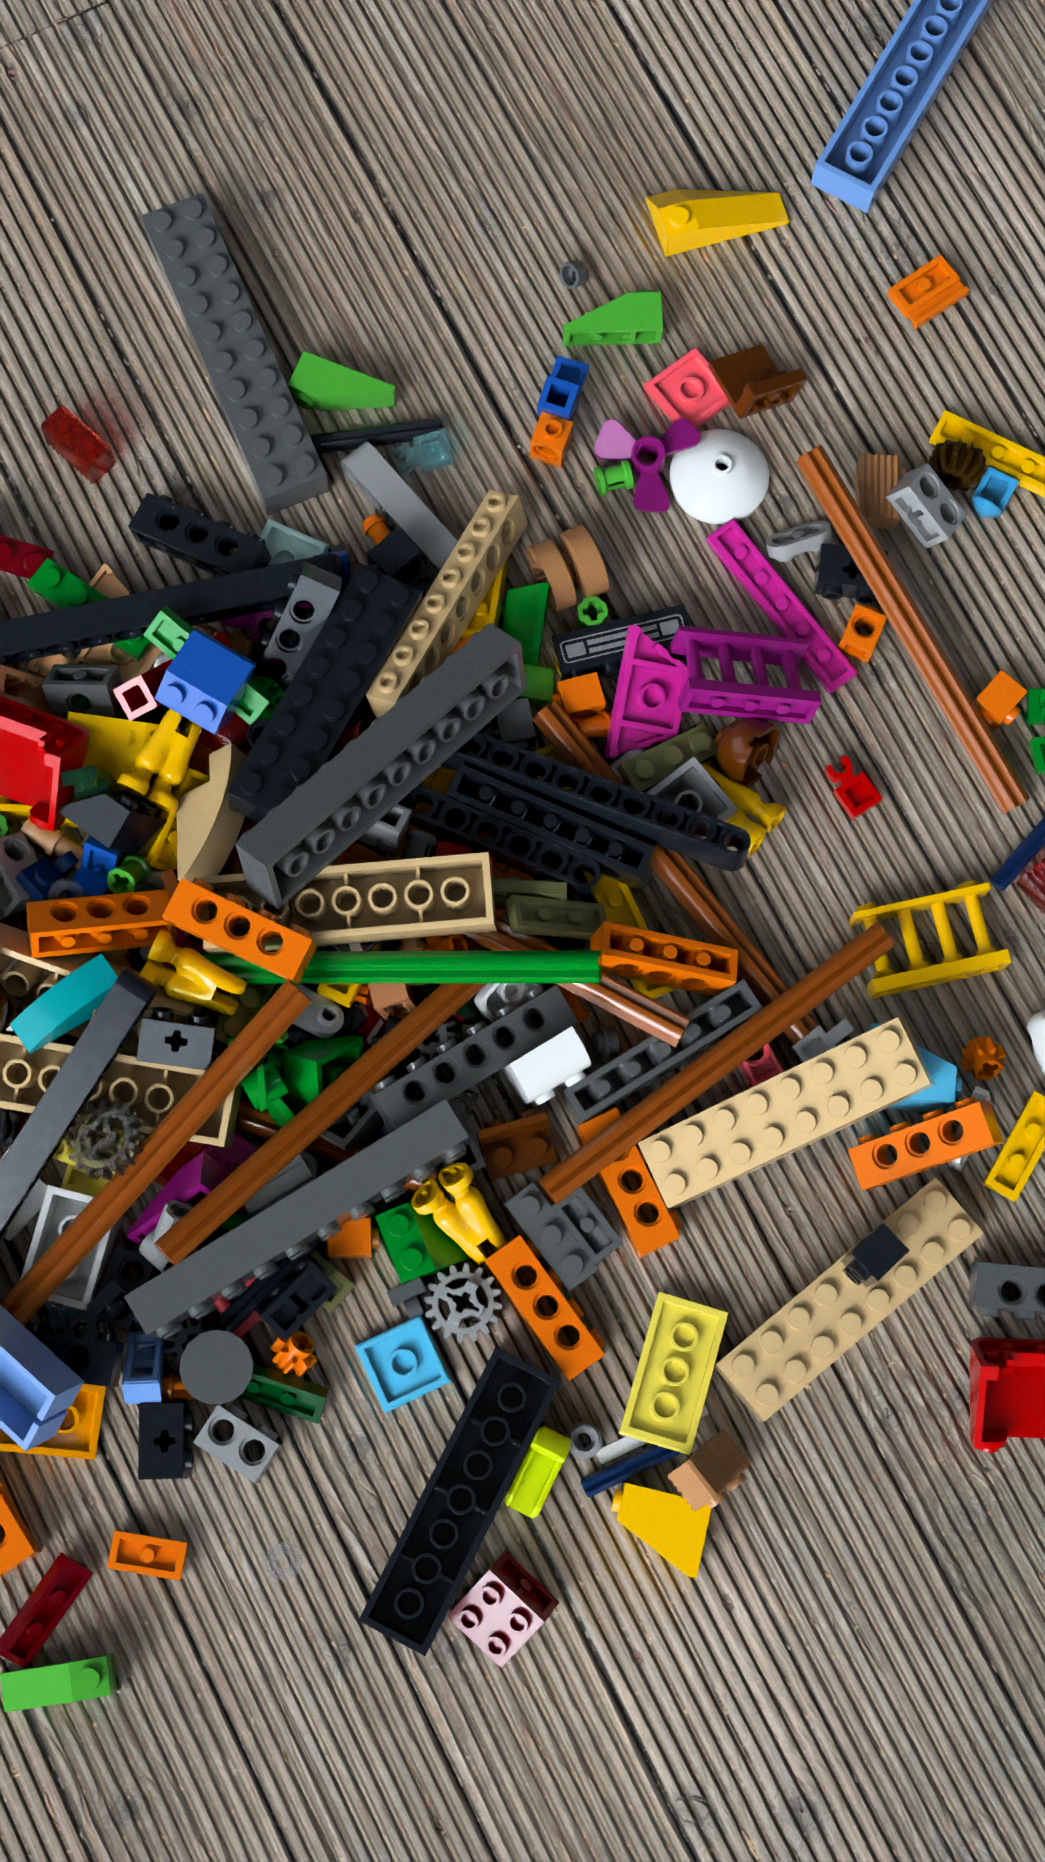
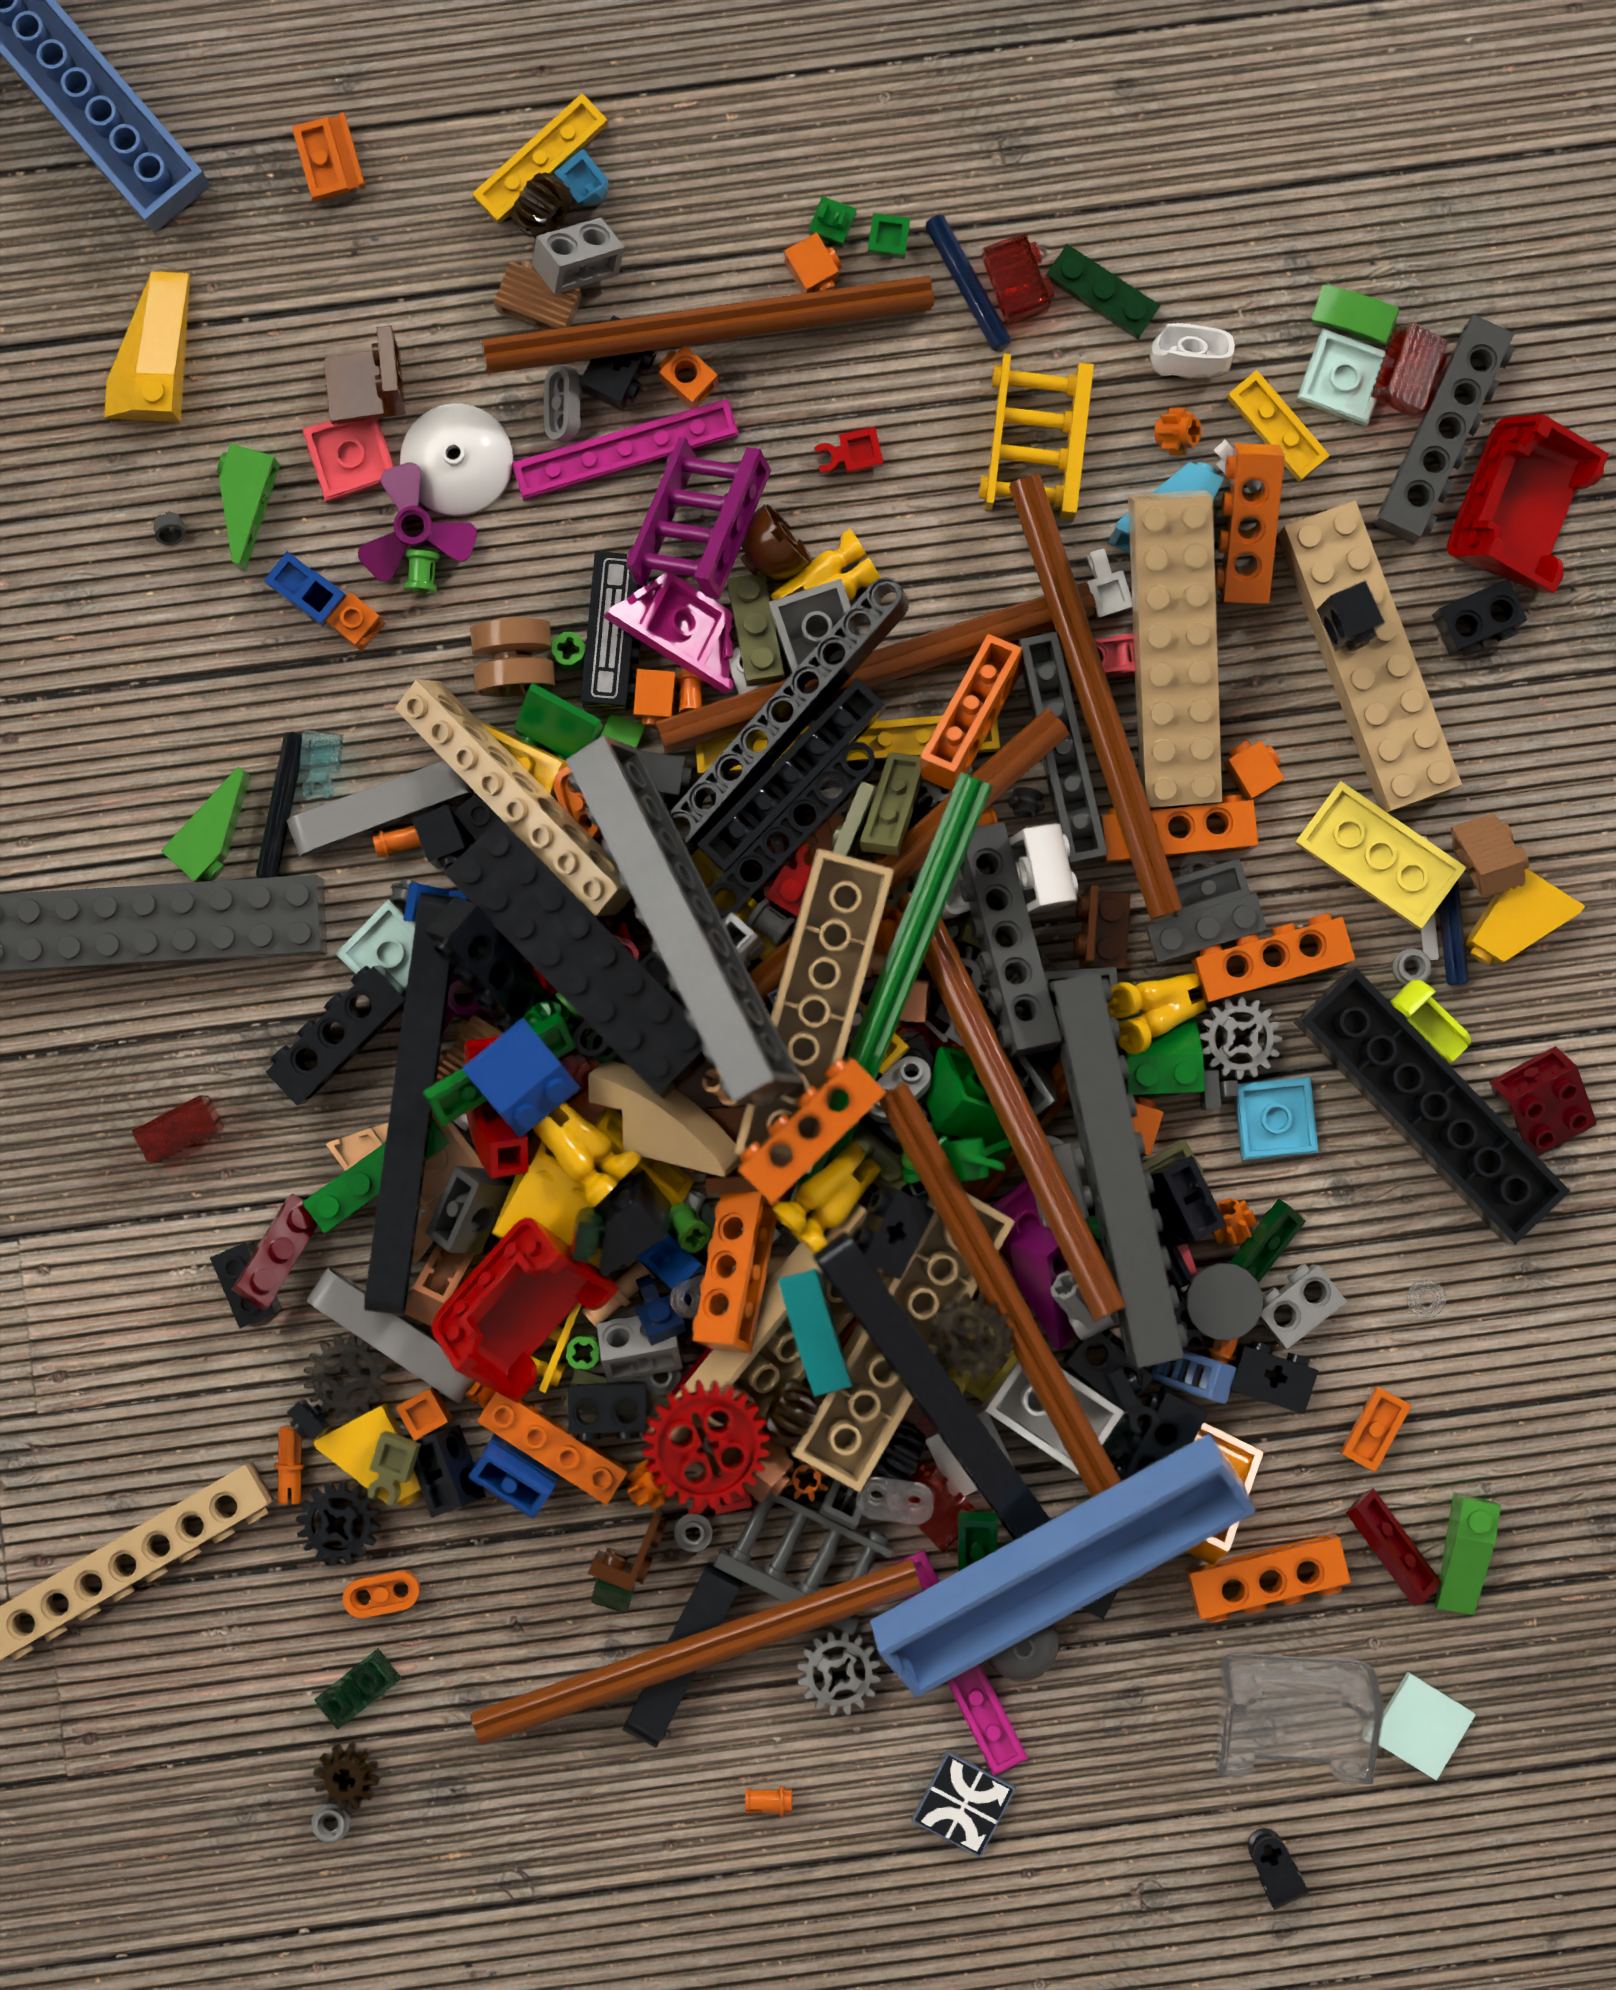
camera: 70 degrees left, 10 degrees up
(710, 1231) = (1253, 768): none -> orange brick
(930, 1381) = (1476, 611): none -> black brick

